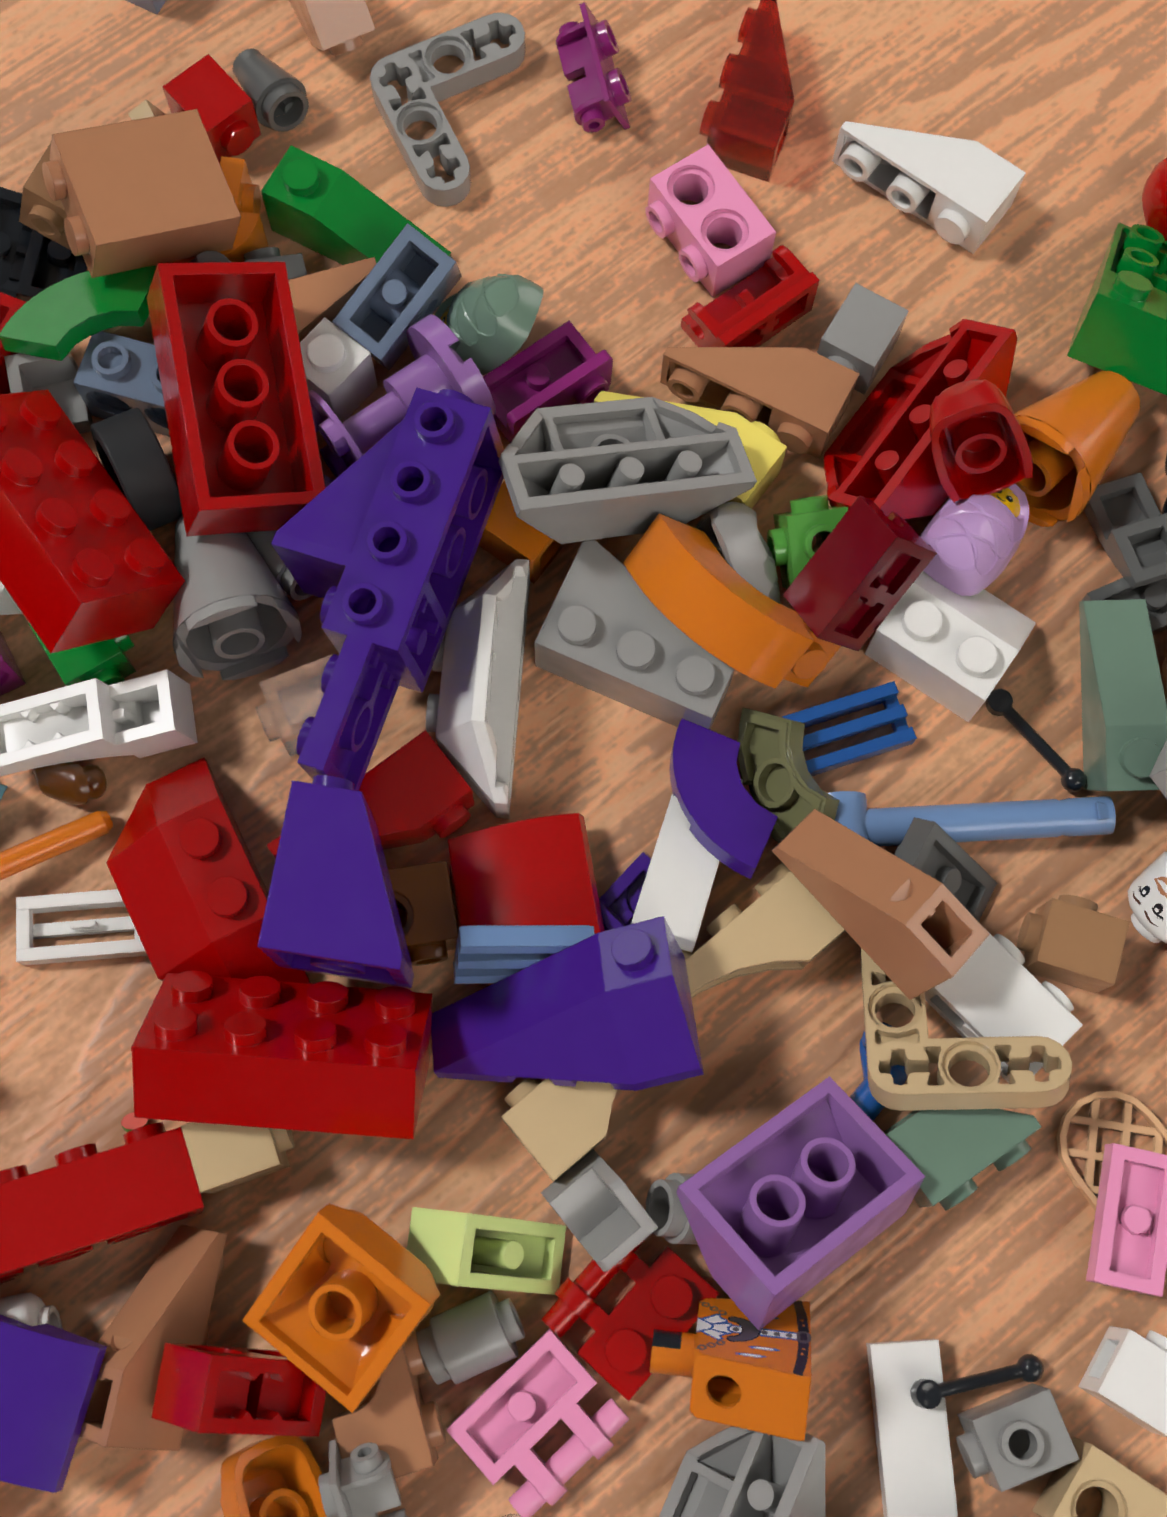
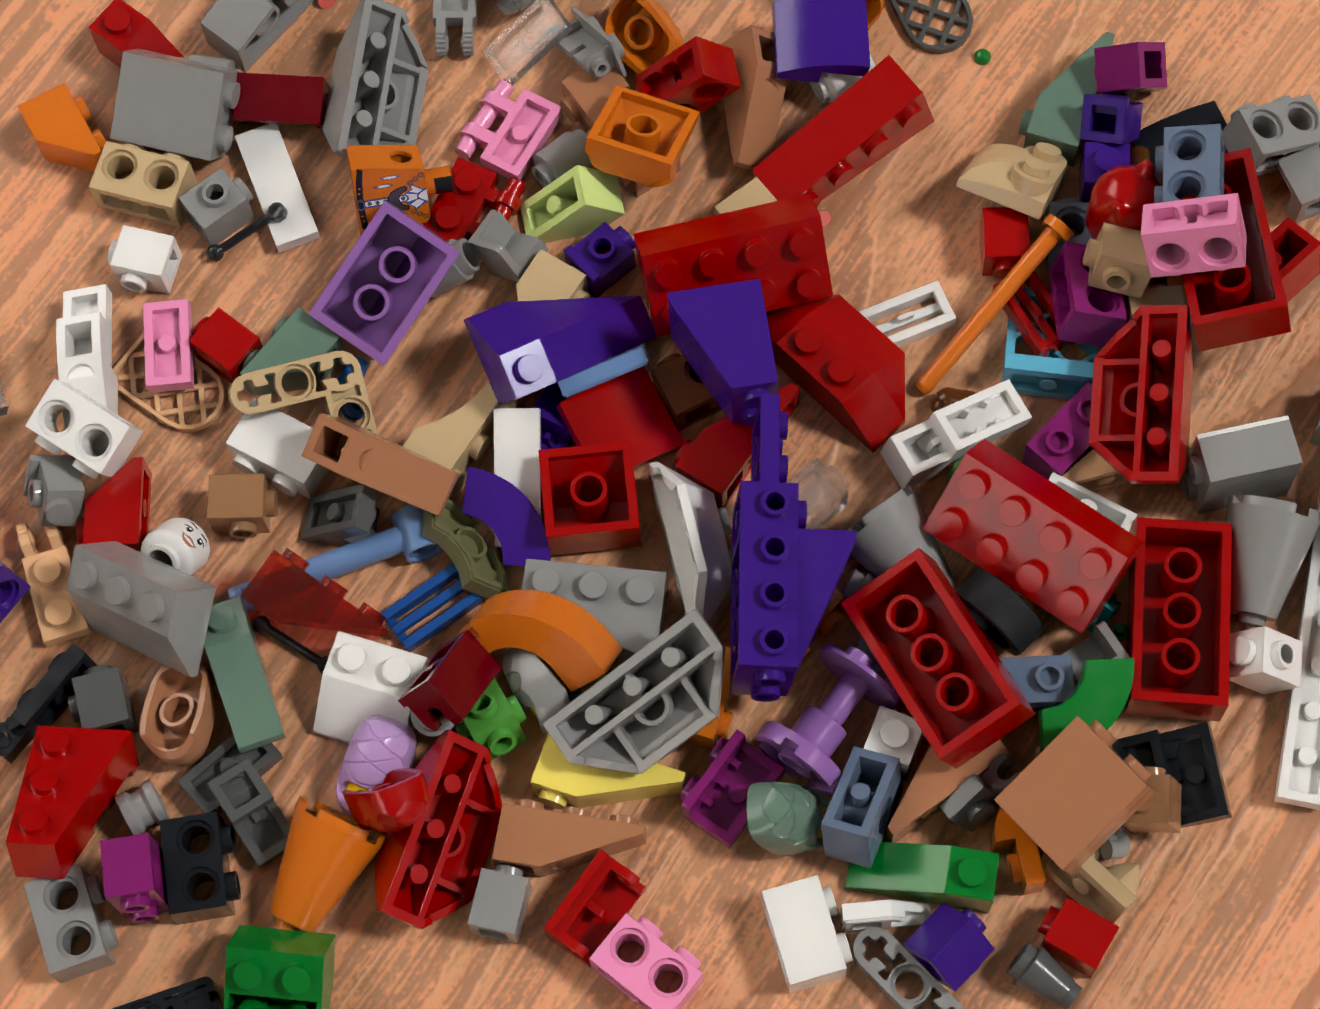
camera: 170 degrees right, 5 degrees down
(359, 135) = (950, 945): none -> dark purple brick
(430, 201) = (882, 914): none -> white tile
(494, 1154) = (603, 269): none -> dark purple brick
(515, 204) = (805, 933): none -> white brick
(600, 781) = (589, 498): none -> red slope
(1023, 763) = (298, 599): none -> clear red slope
(1048, 1195) = (223, 344): none -> red brick

